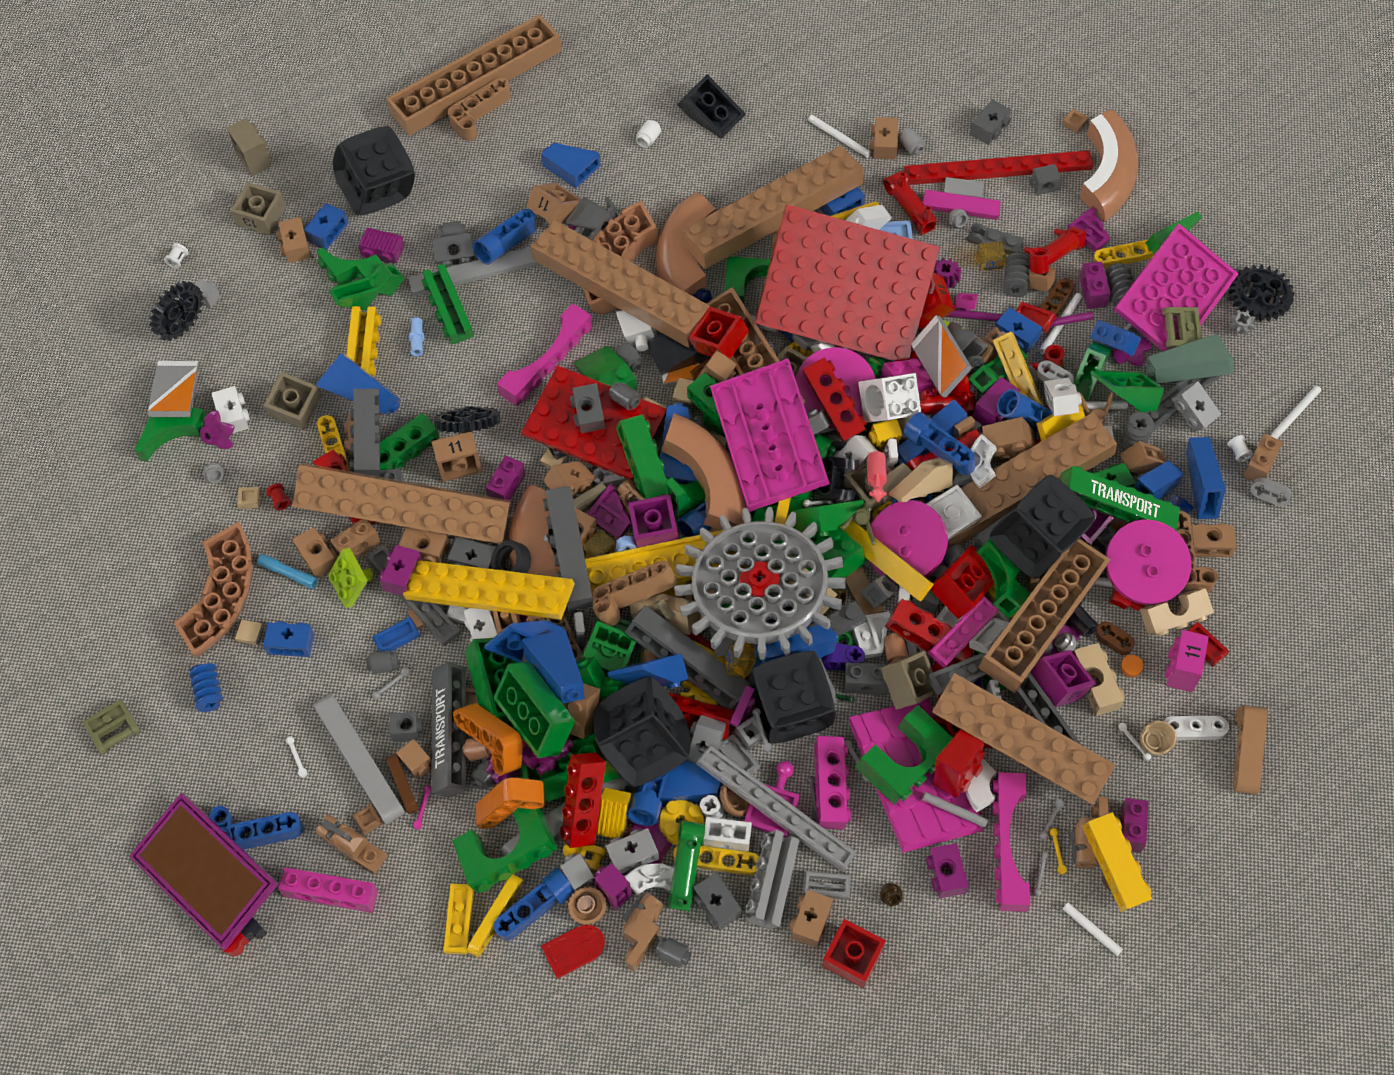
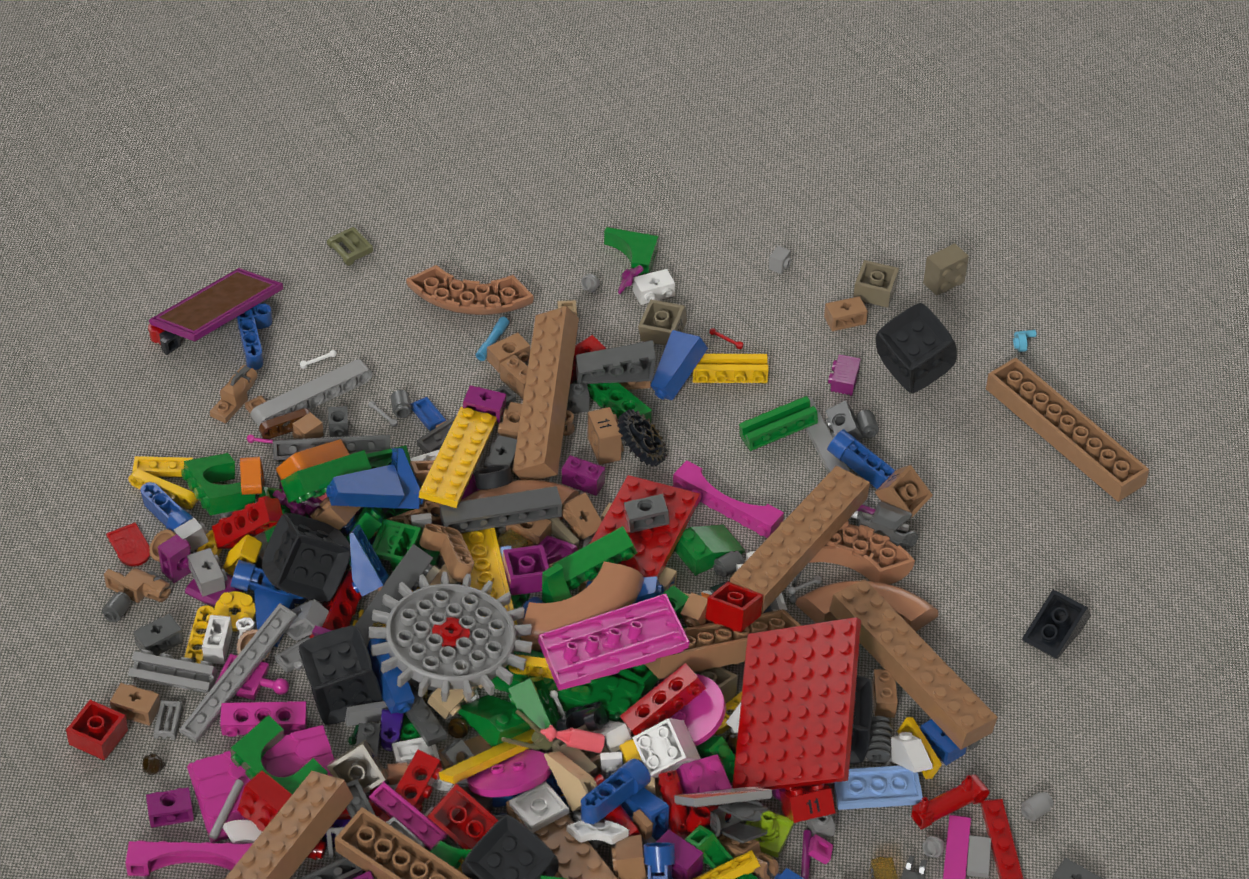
camera: 85 degrees right, 15 degrees down
(173, 389) = (670, 245): tile -> none
(176, 255) = (820, 237): white bush -> none
(181, 311) = (736, 228): black gear -> none
(205, 687) = (379, 294): blue piece -> none
(249, 632) = (434, 320): tan tile -> none
(288, 639) = (424, 343): blue brick -> none
(322, 339) = (739, 345): none -> red hinge
(326, 226) = (861, 333): blue brick -> none
(328, 890) = (194, 383): dark pink brick -> none
(345, 271) = (813, 366): green arch -> none
(349, 577) = (480, 372): lime plate -> none
(351, 99) = (1020, 339): none -> medium azure plate
(363, 291) = (786, 362): green arch -> none
(416, 337) = (742, 406): light blue pin -> none
(476, 105) = (1028, 434): medium nougat beam -> none
(570, 163) = (963, 510): blue slope -> none
(624, 395) = (661, 538): dark grey brick -> none
(648, 133) = (1013, 572): white brick -> none
(650, 876) = (187, 592): white tile -> none
(689, 843) = (190, 607): green piece -> none
(703, 295) = (805, 618): clear blue plate -> none
(818, 420) = (639, 690): light grey plate -> none
(838, 135) = (1038, 743): white bar -> none
(885, 138) = (1037, 778): medium nougat brick -> none
(949, 271) = (855, 830): magenta gear -> none

